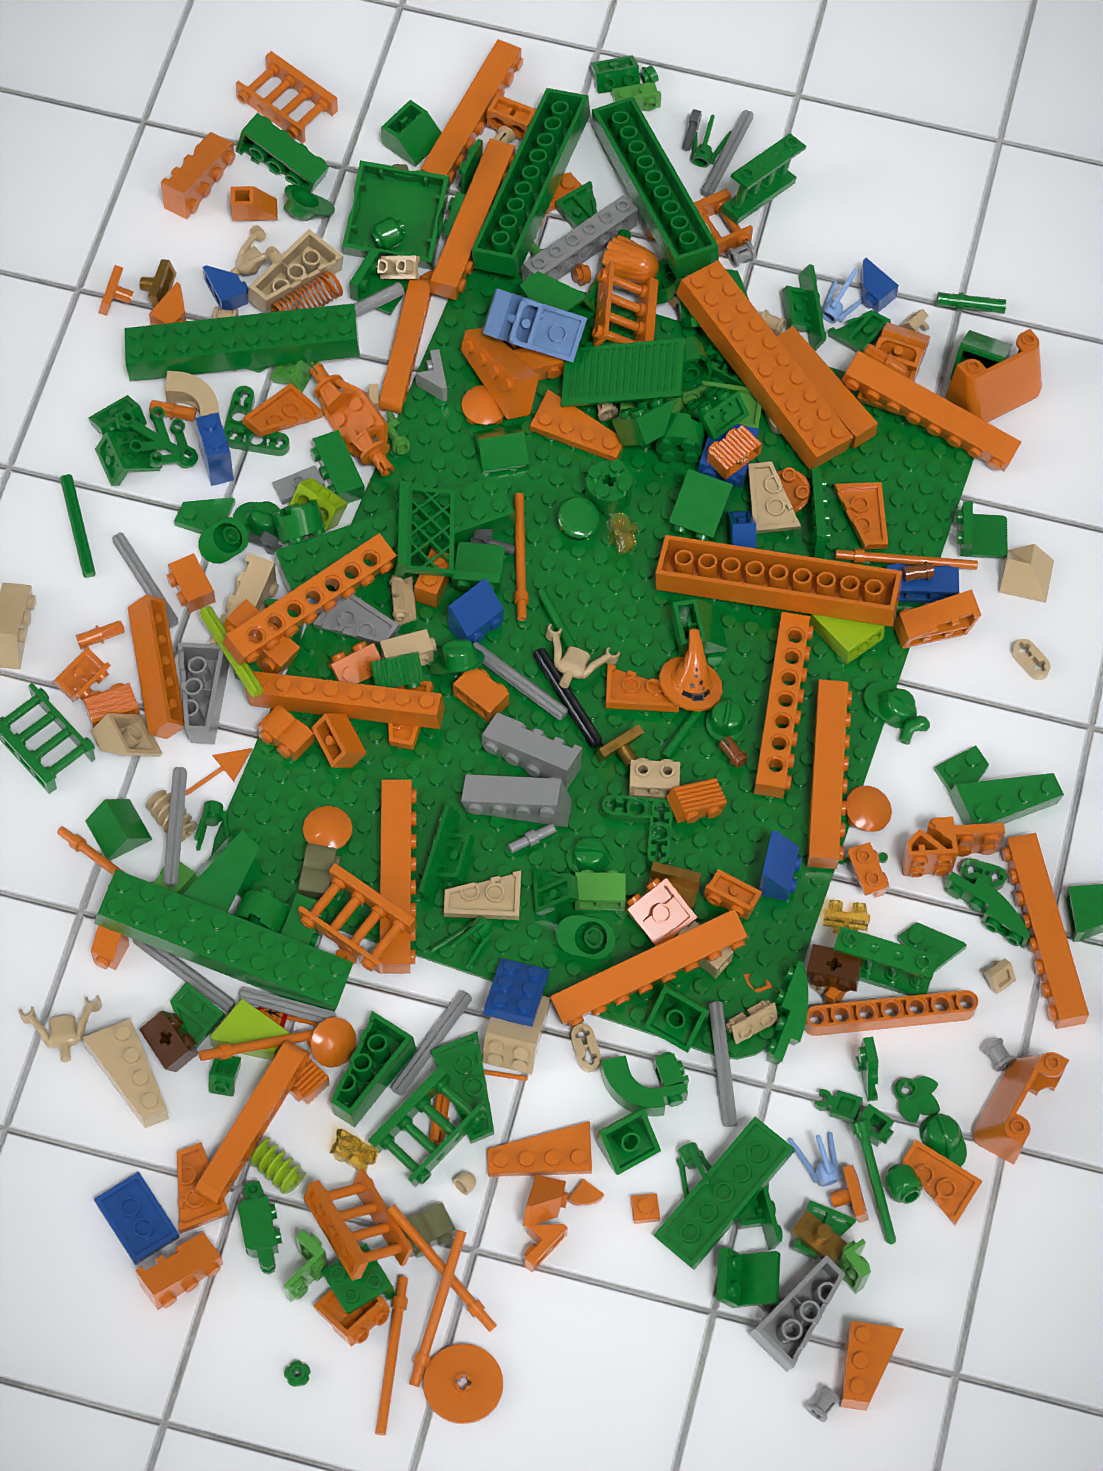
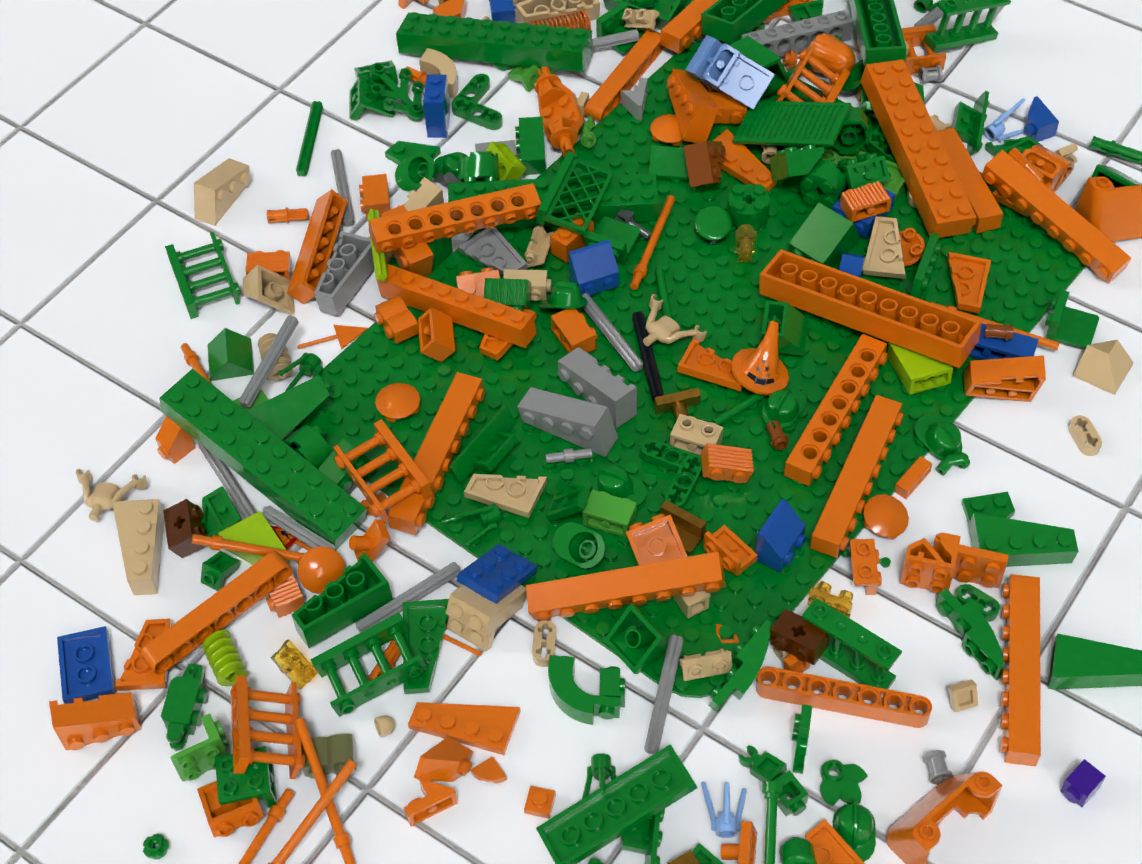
camera: 25 degrees right, 10 degrees down
(81, 674) = (257, 238): orange bracket -> none
(282, 411) = (504, 96): orange wing -> none
(315, 871) = (365, 427): olive brick -> none
(373, 997) = (372, 541): none -> orange tile
(542, 445) = (703, 162): none -> dark orange brick
(628, 1141) = (547, 734): green slope -> none
(880, 757) = (913, 477): none -> orange piece
(933, 942) = (914, 654): green wing -> none

